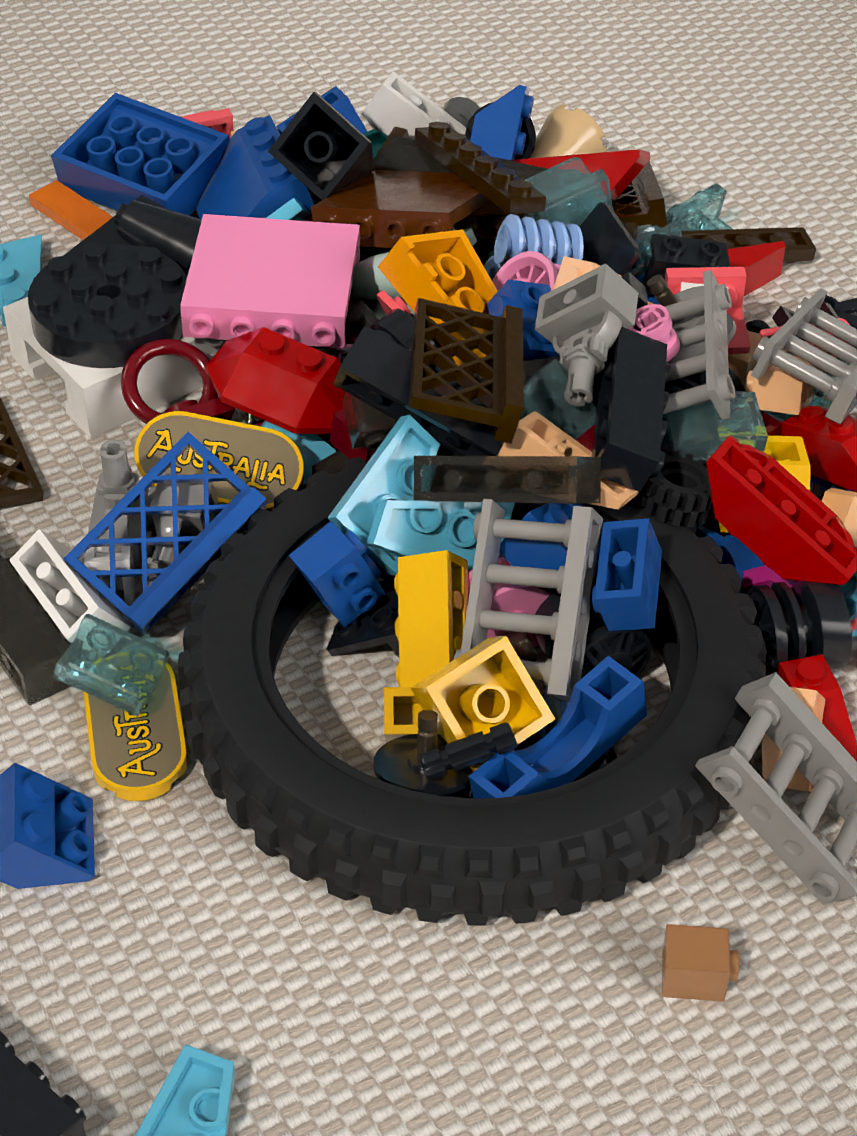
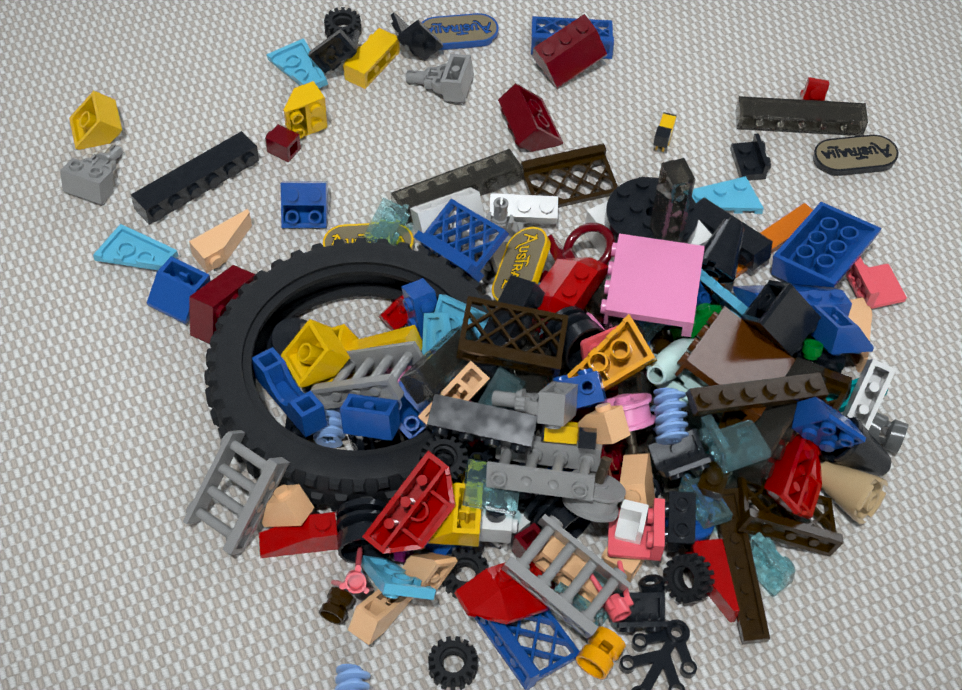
camera: 95 degrees right, 10 degrees up
(58, 487) = (529, 208): none -> white brick
(154, 202) = (672, 200): none -> clear smoke brick
(155, 966) = (219, 243): none -> light nougat slope
(304, 1012) = (174, 286): none -> blue slope
(313, 648) = (395, 314): none -> red bracket
(331, 920) = (210, 301): none -> dark red wedge
(468, 751) = (282, 344): black axle -> none
(656, 323) = (548, 446): bright pink wheel -> none
(697, 963) = (167, 446): medium nougat brick -> none
(765, 283) = (701, 578): none -> black tyre

